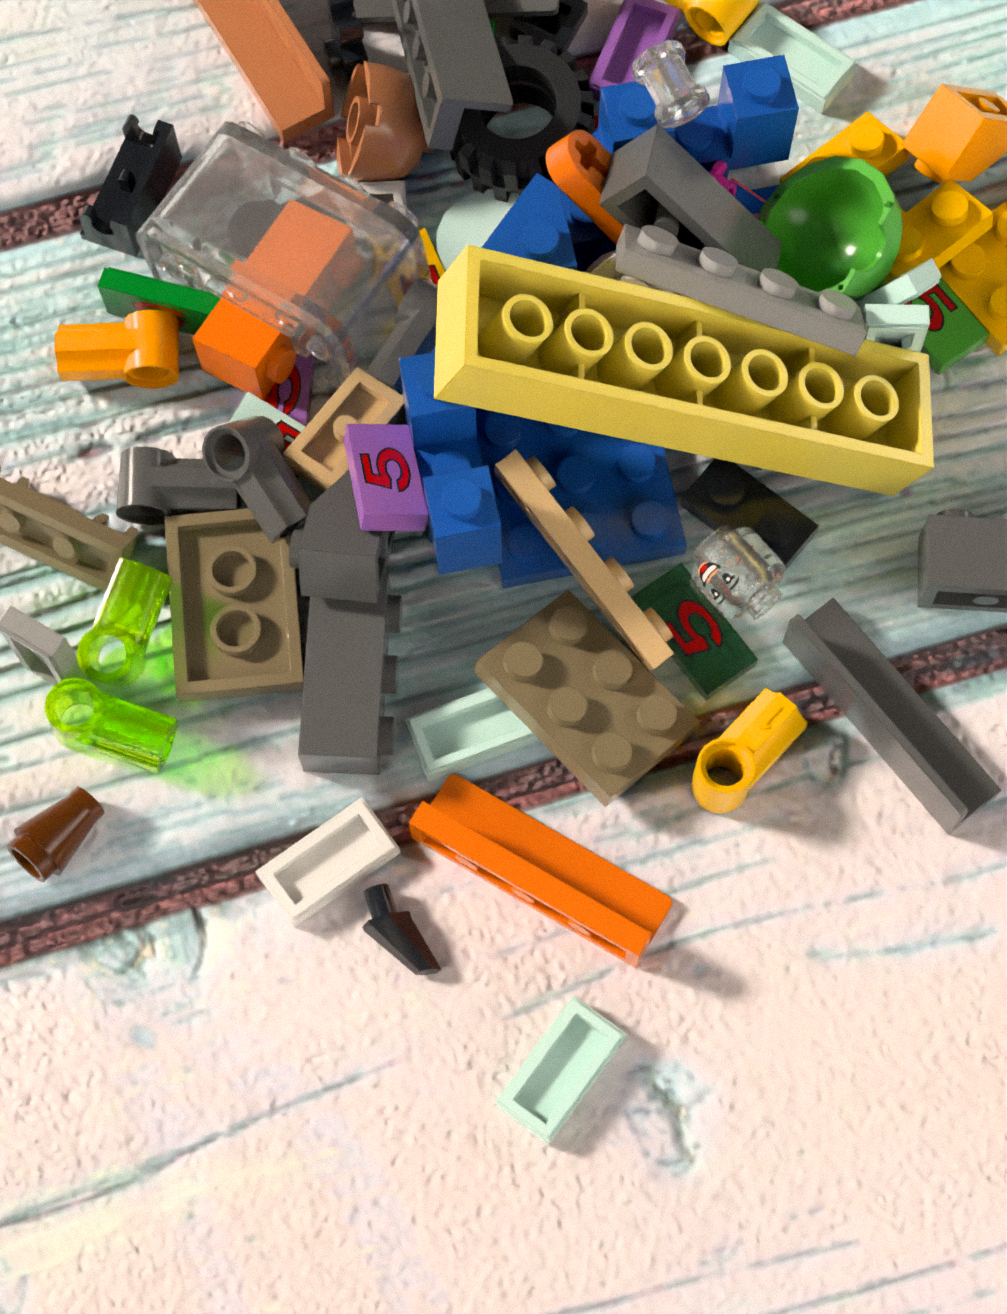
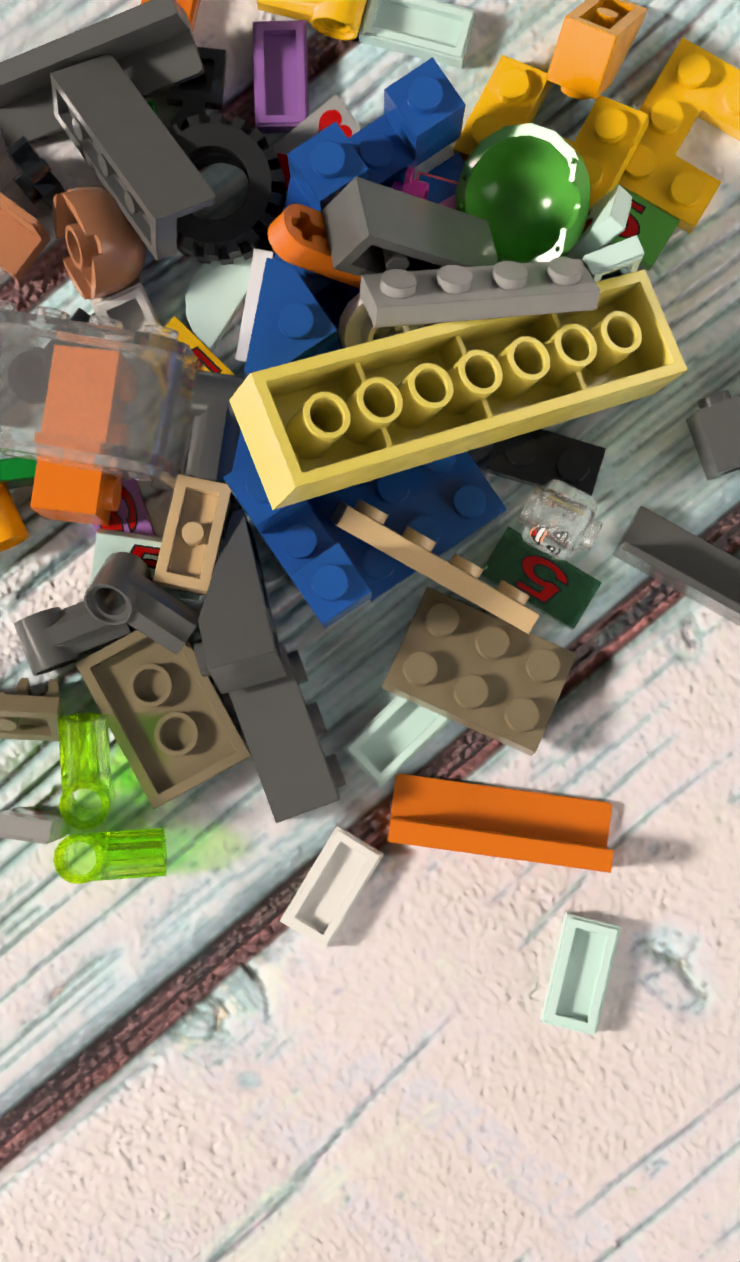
camera: 25 degrees left, 15 degrees up
(53, 836) = (109, 959): reddish brown cone -> none
(385, 477) = (249, 572): medium lavender tile -> none
(397, 932) = (410, 920): black bar -> none
(670, 84) = (352, 134): clear bush -> none
(747, 749) = (624, 659): yellow piece -> none

